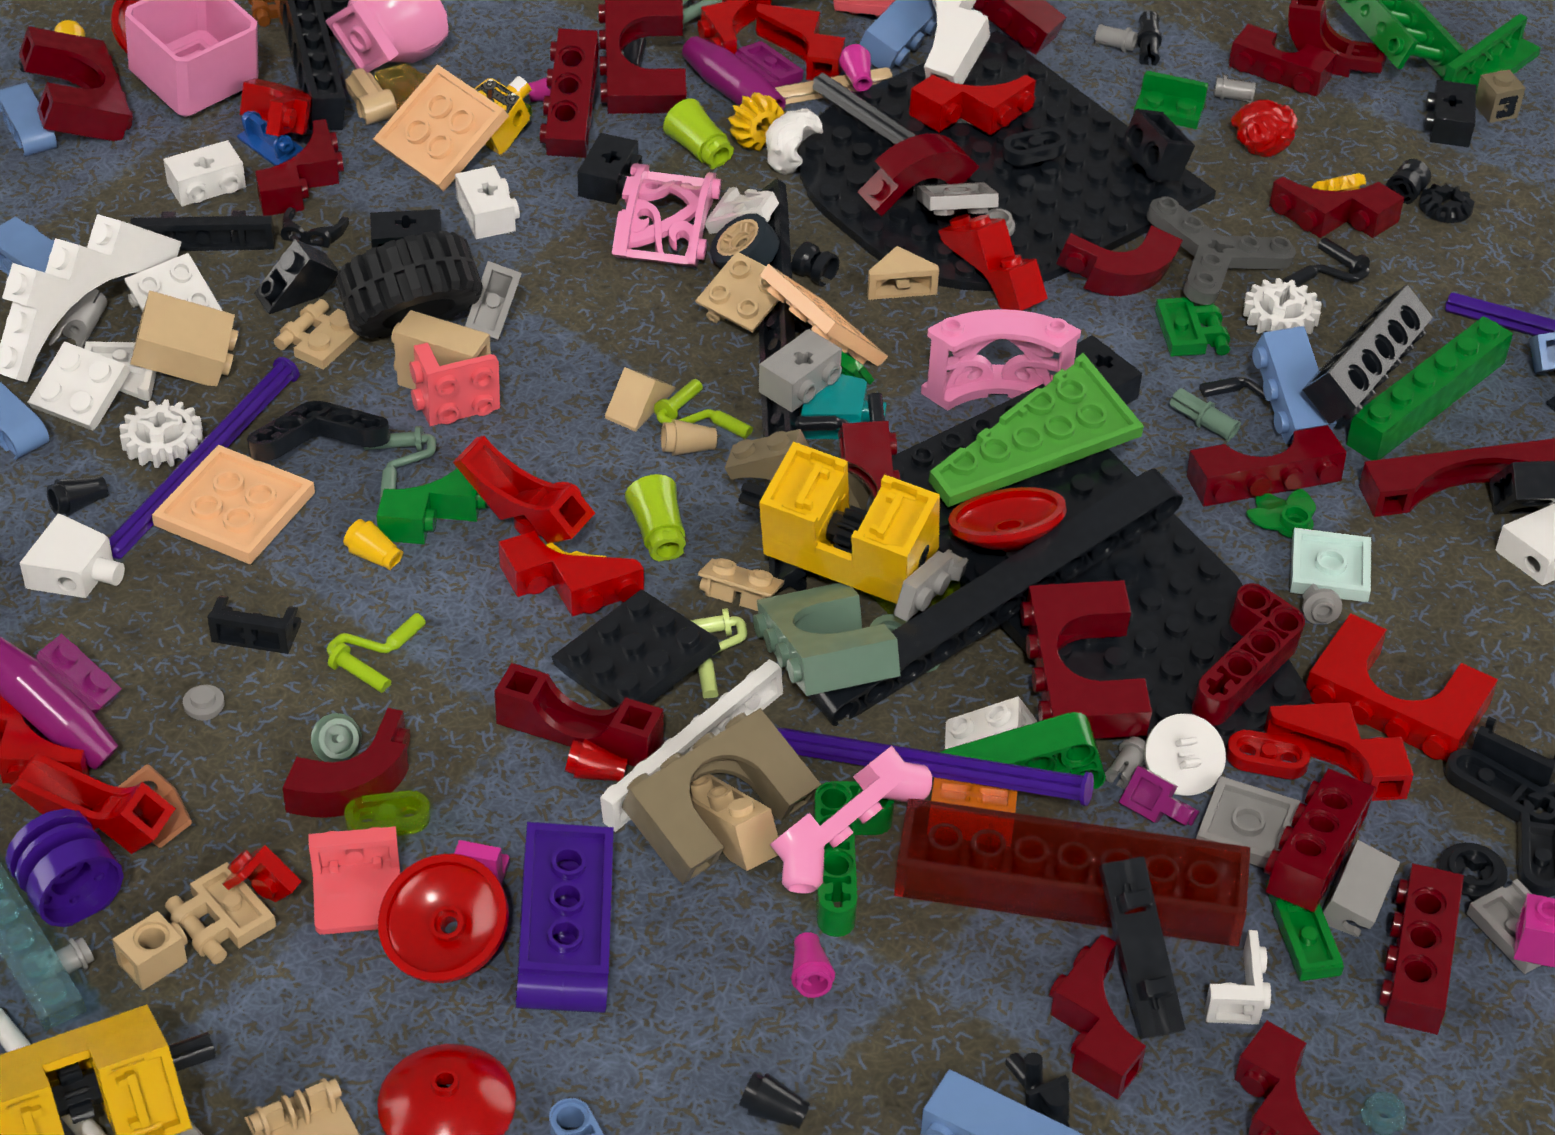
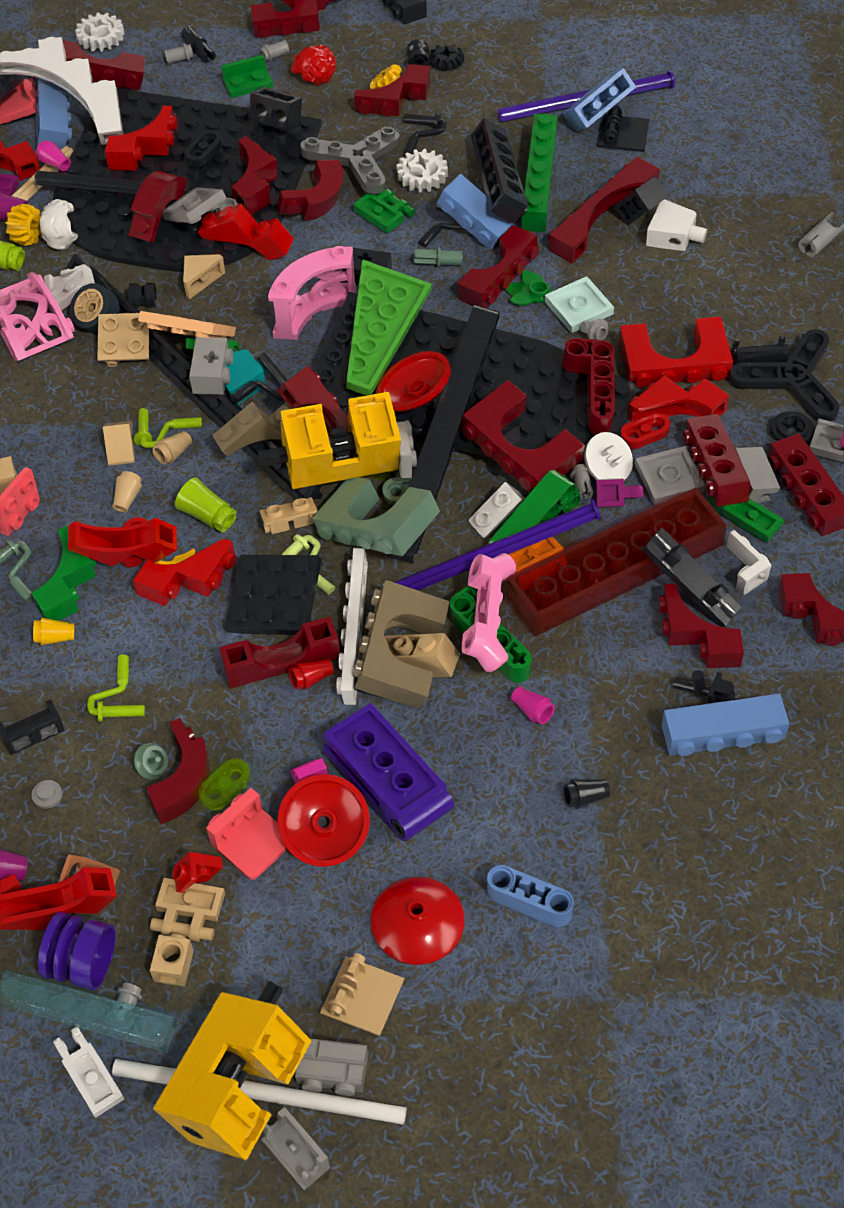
camera: 35 degrees left, 10 degrees up
(594, 451) = (126, 490): none -> tan cone
(1045, 216) = (253, 187): none -> dark red arch

